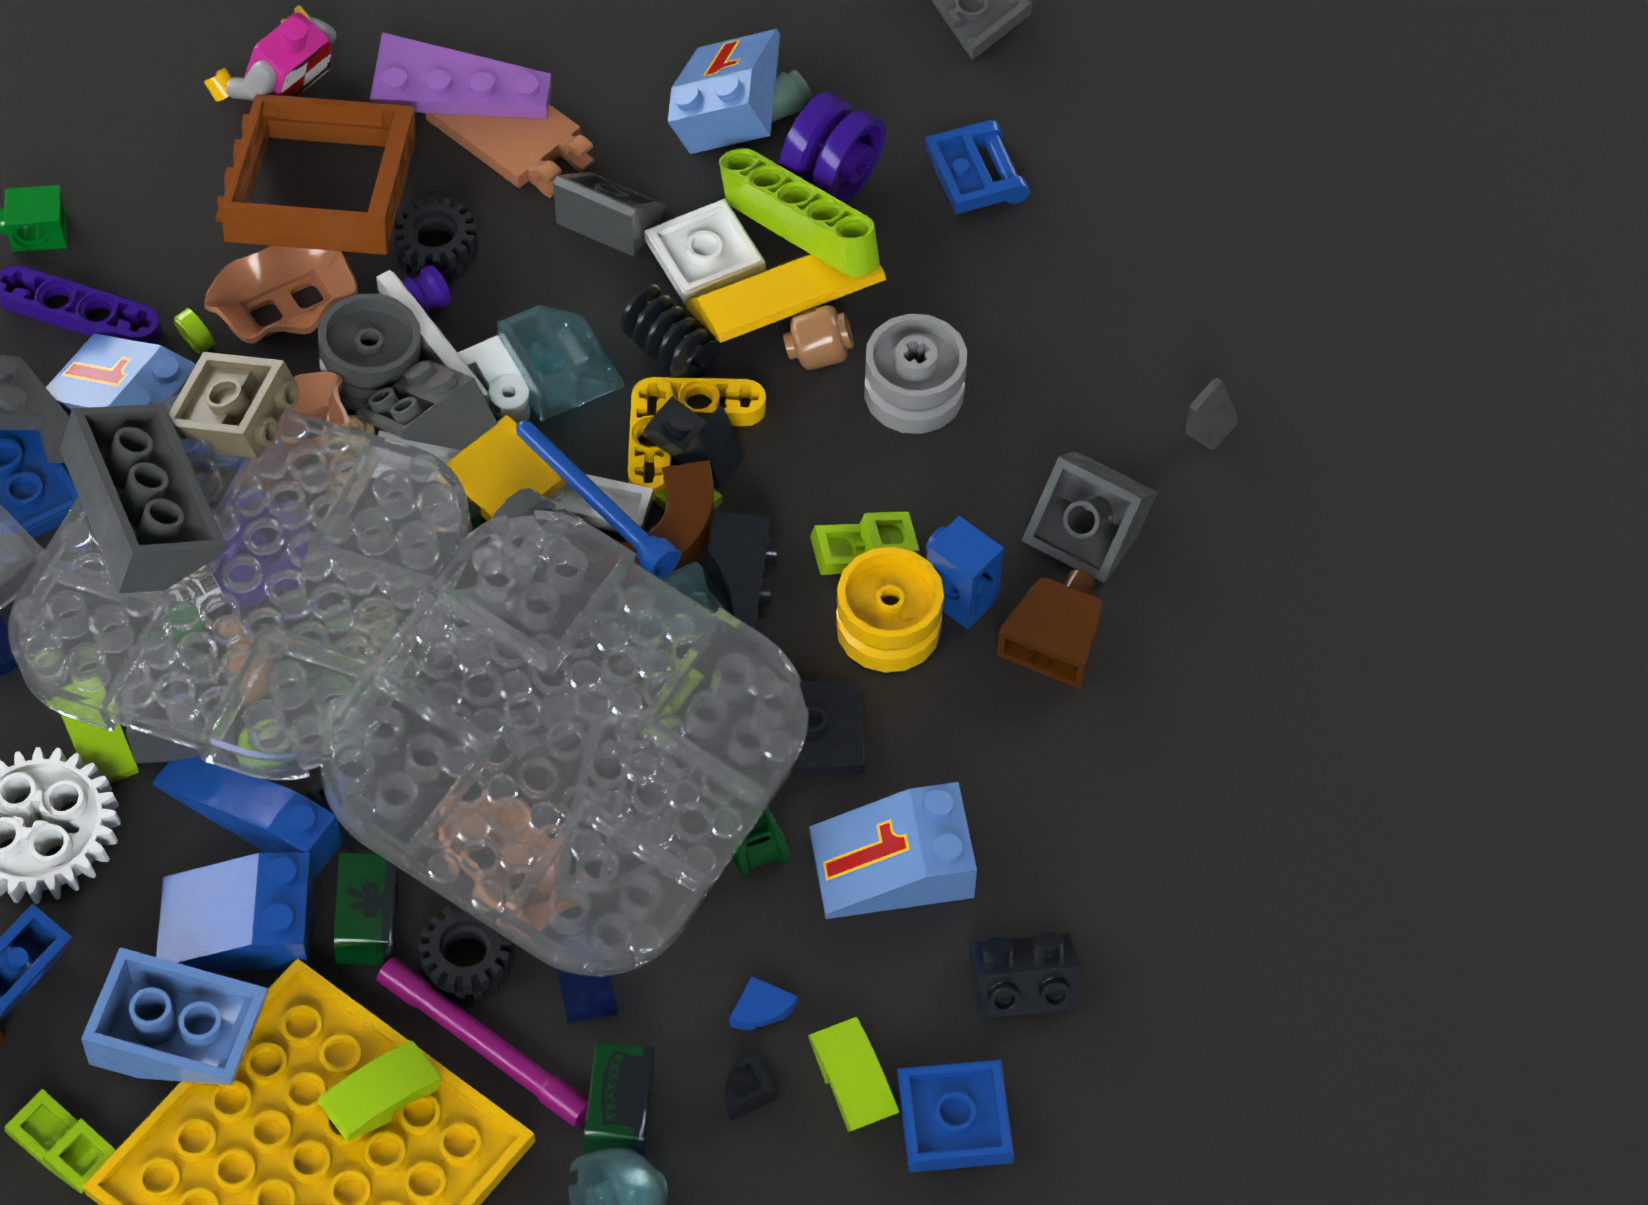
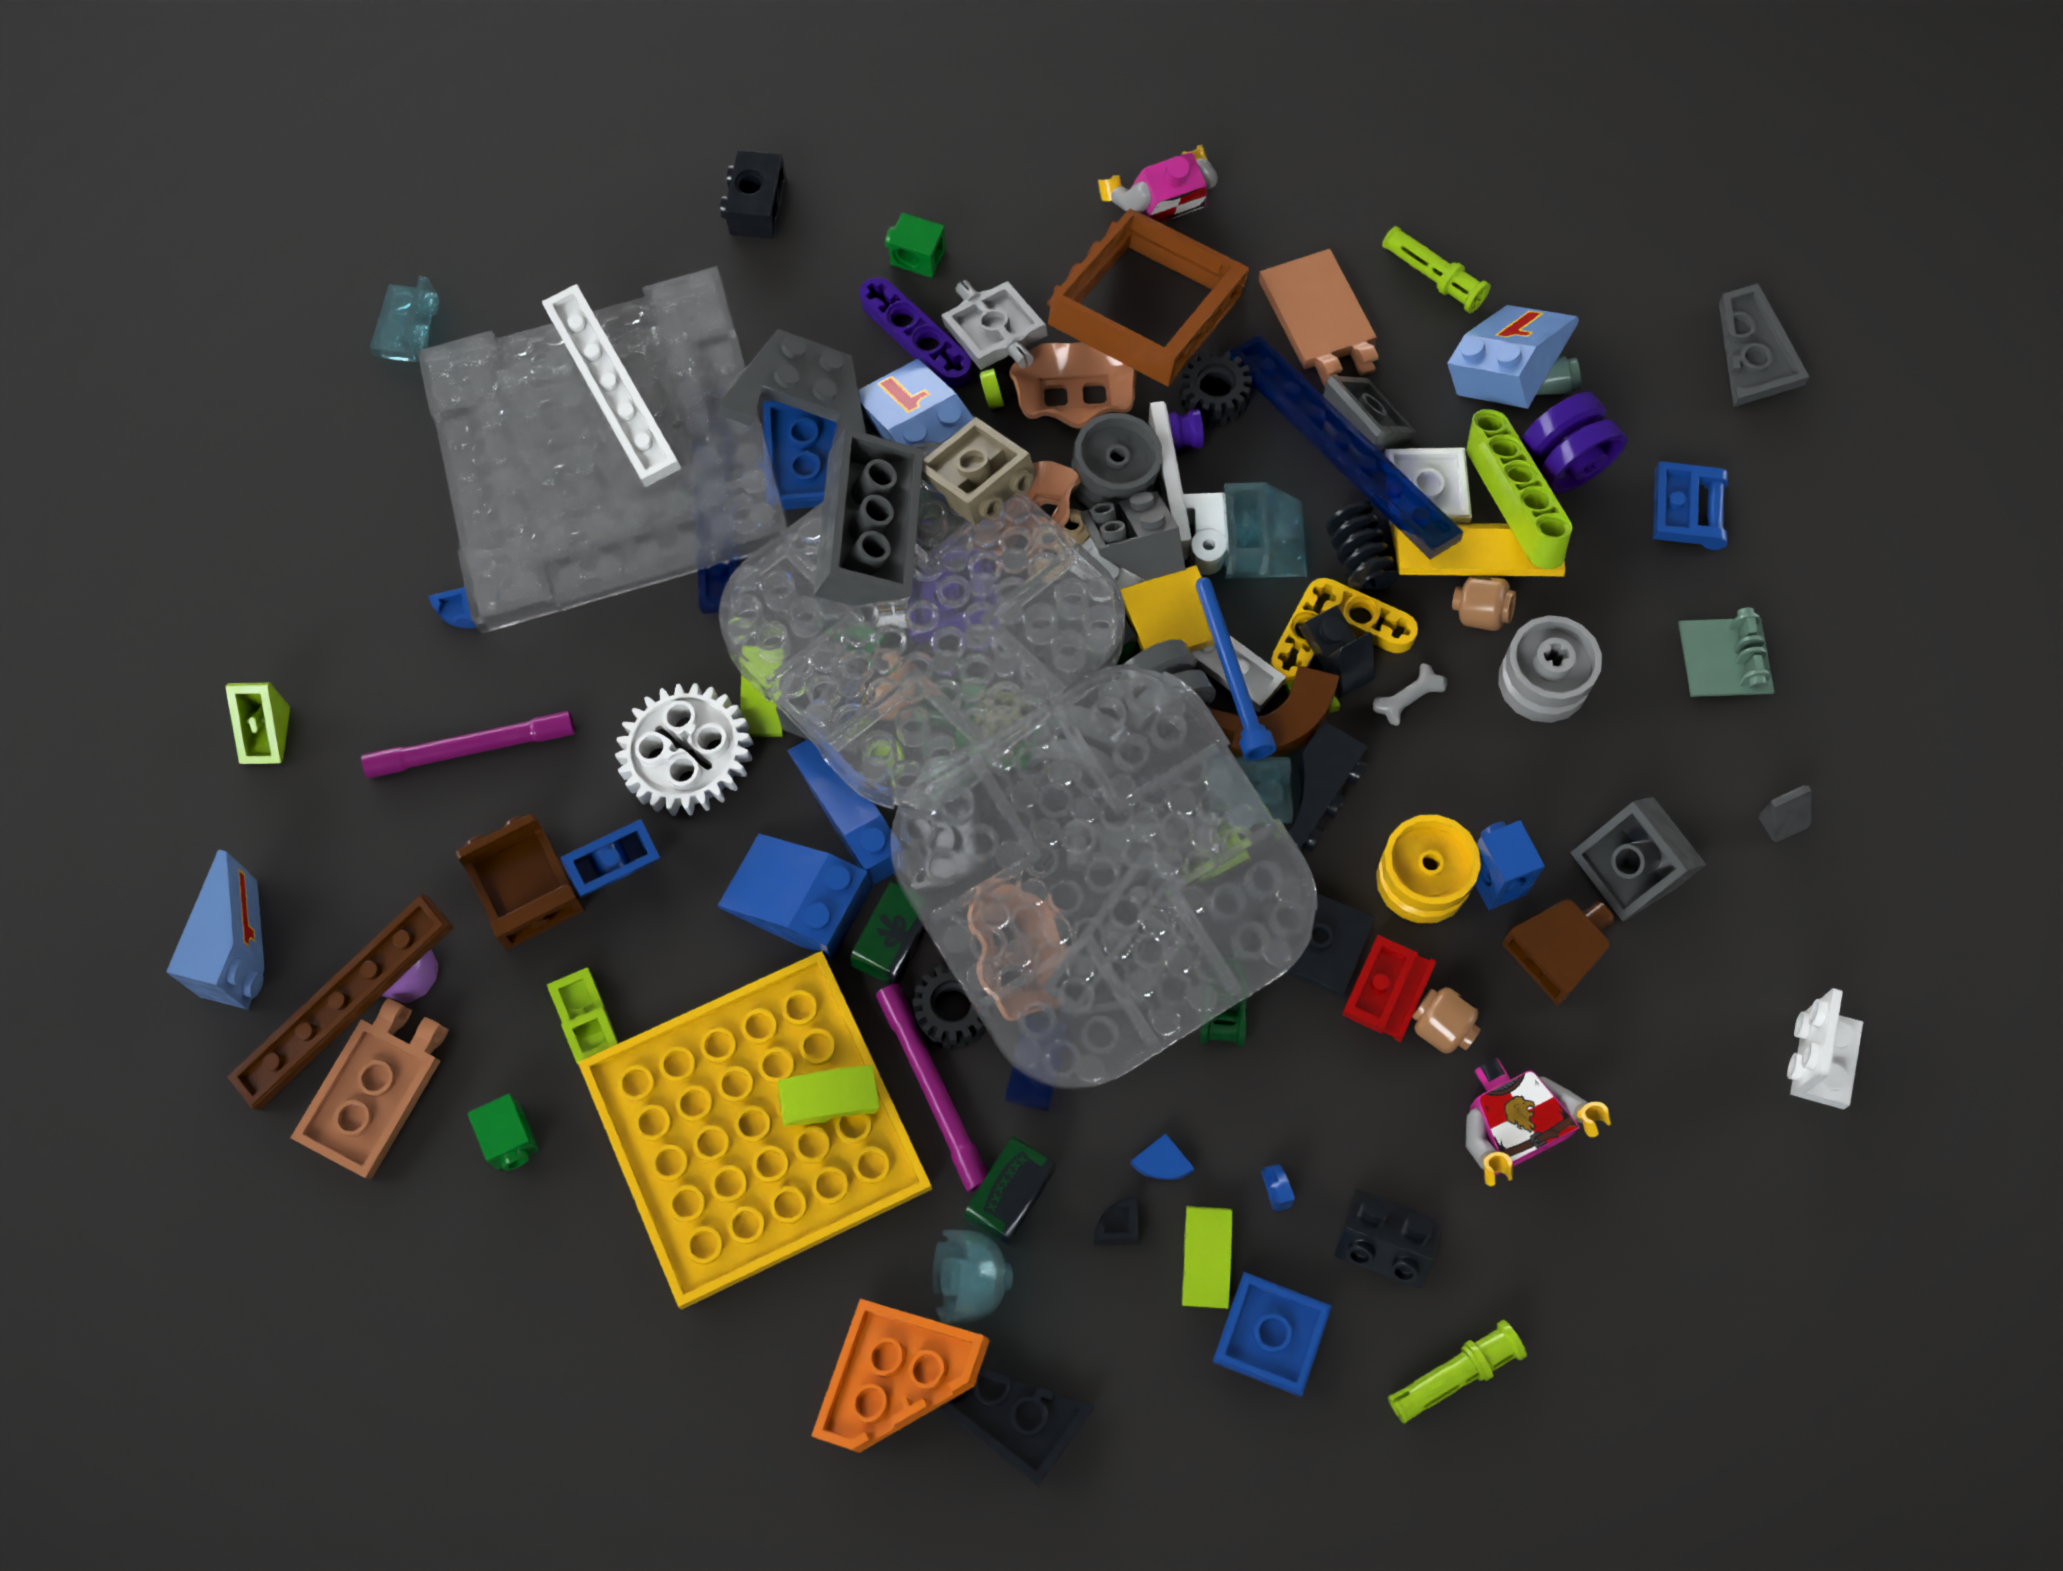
camera: 30 degrees right, 10 degrees up
(164, 266) = (994, 324): none -> light grey plate
(171, 1021) = (702, 961): medium blue slope -> none
(456, 82) = (1294, 259): medium lavender wing -> none
(605, 243) = (1348, 449): none -> clear blue tile
(629, 38) = (1449, 277): none -> lime pin
(797, 440) = (1394, 705): none -> light grey piece
(839, 544) = (1449, 797): lime slope -> none
(892, 977) = (1277, 1187): none -> blue tile
(895, 853) = (1332, 1082): medium blue slope -> none
(906, 741) = (1388, 988): none -> red plate
(979, 744) = (1446, 1020): none -> medium nougat head
(1081, 294) = (1726, 656): none -> sand green hinge
(1100, 800) = (1523, 1119): none -> torso
(1165, 1049) = (1474, 1362): none -> lime pin
(1354, 617) = (1826, 1053): none -> white bracket

